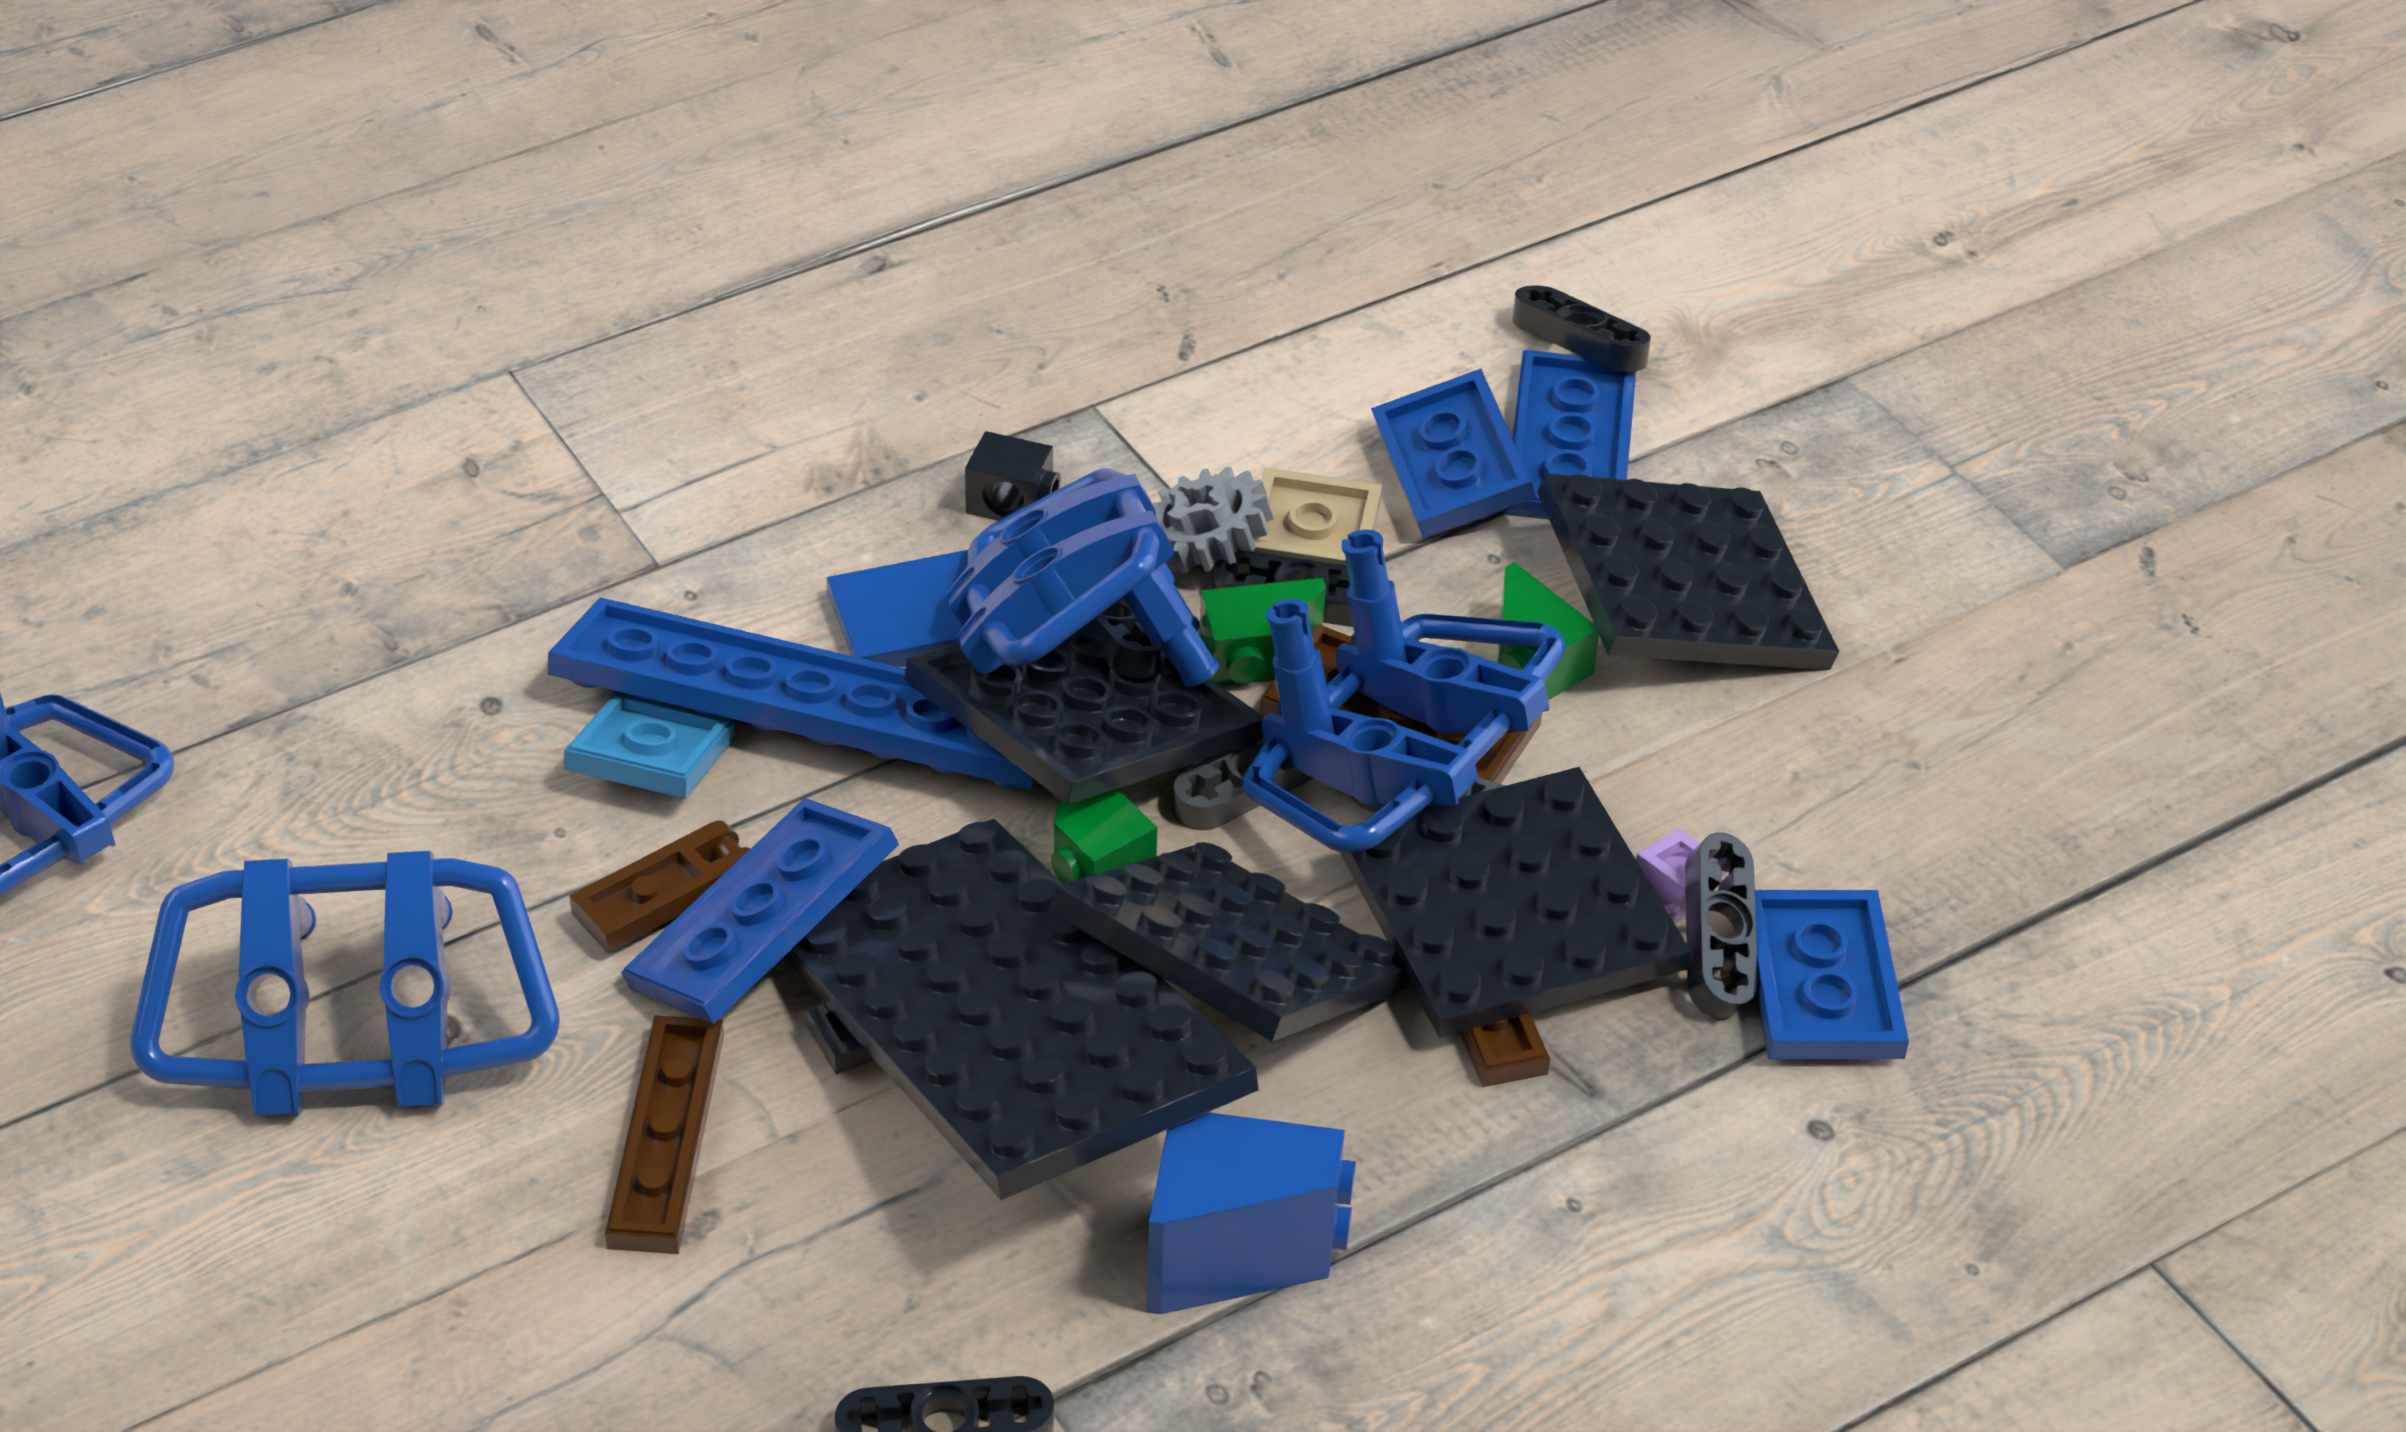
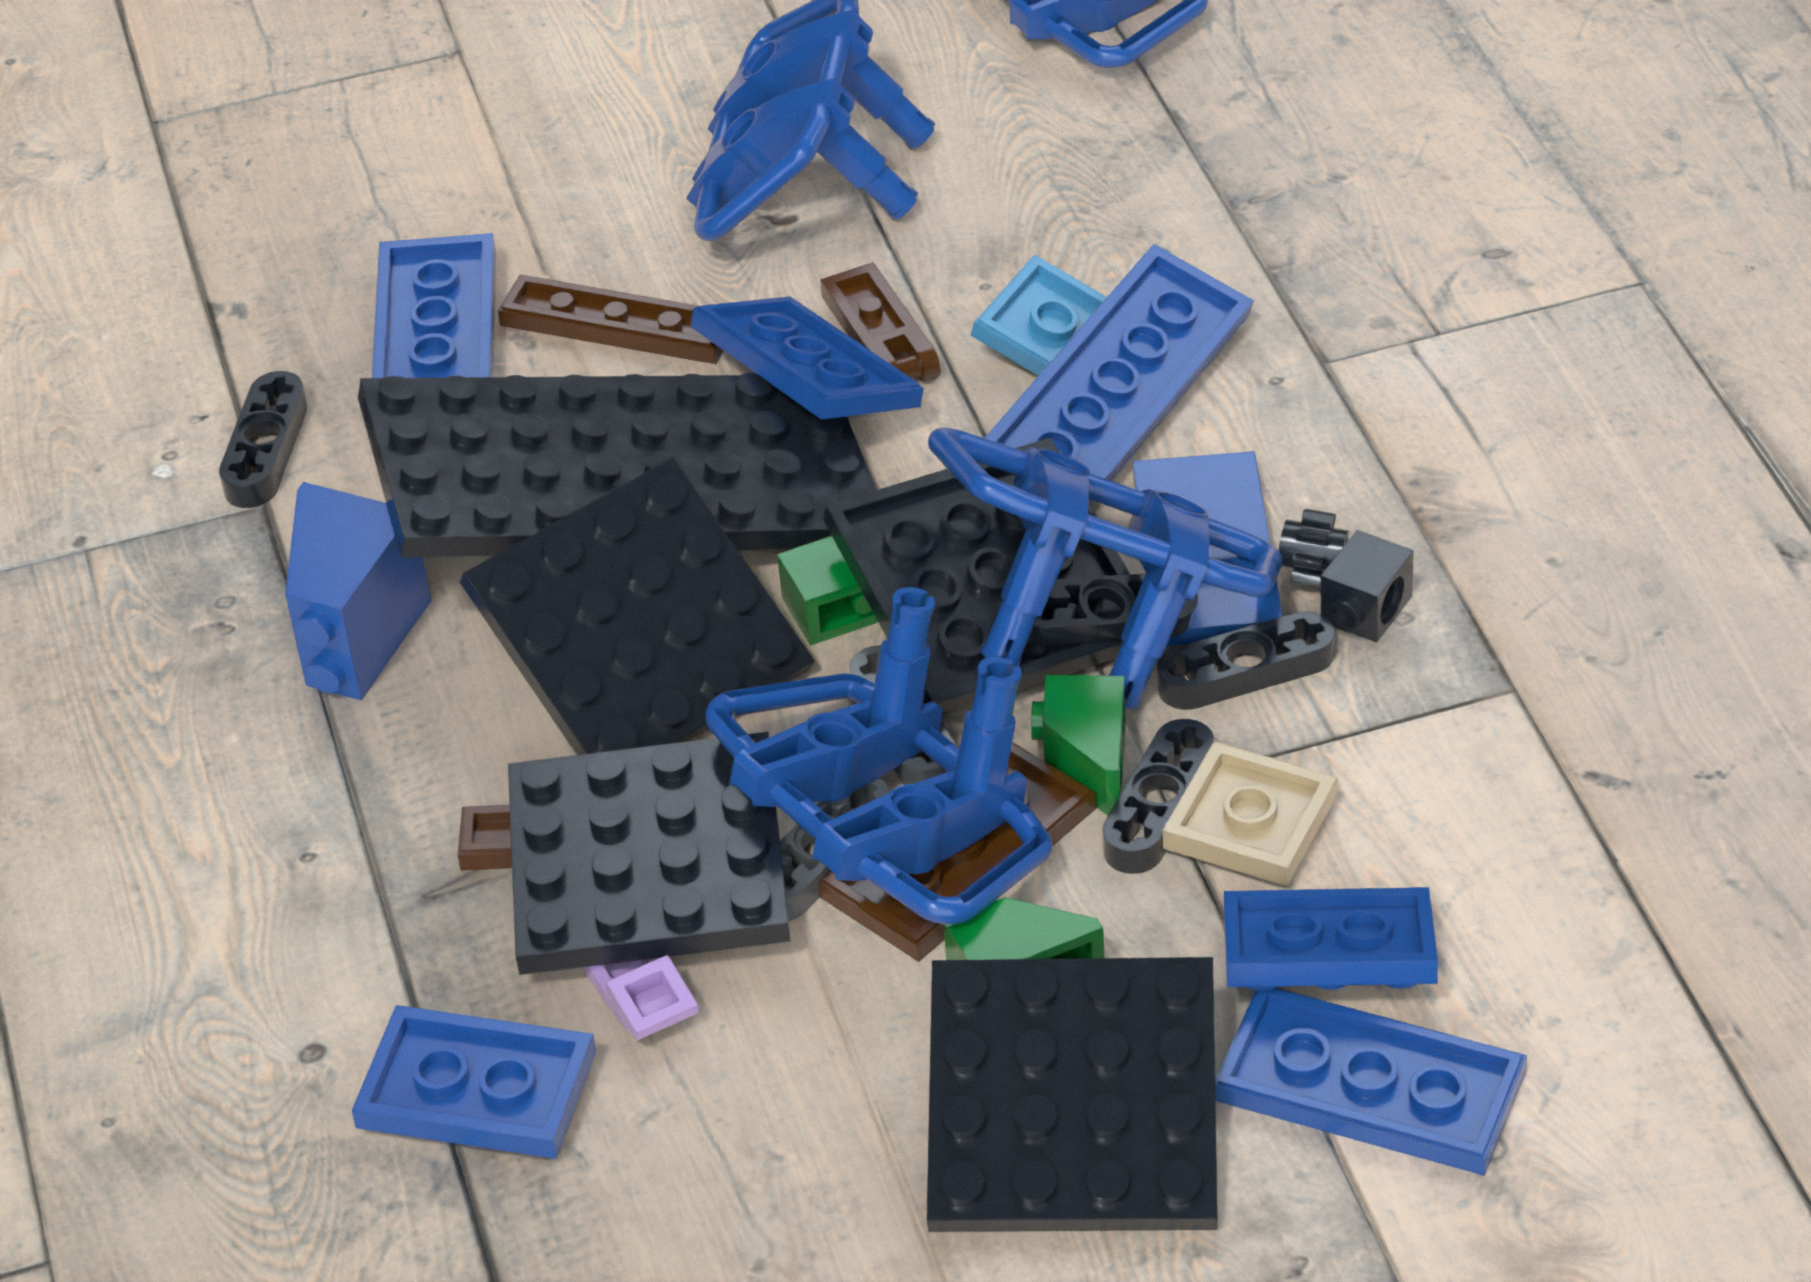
camera: 110 degrees right, 0 degrees up
(705, 1294) = (435, 307): none -> plate
(967, 510) = (1311, 545): none -> black gear
(1213, 517) = (1258, 715): light grey gear -> none
(1581, 328) = (1533, 1133): black beam -> none
(1708, 949) = (532, 981): black beam -> none

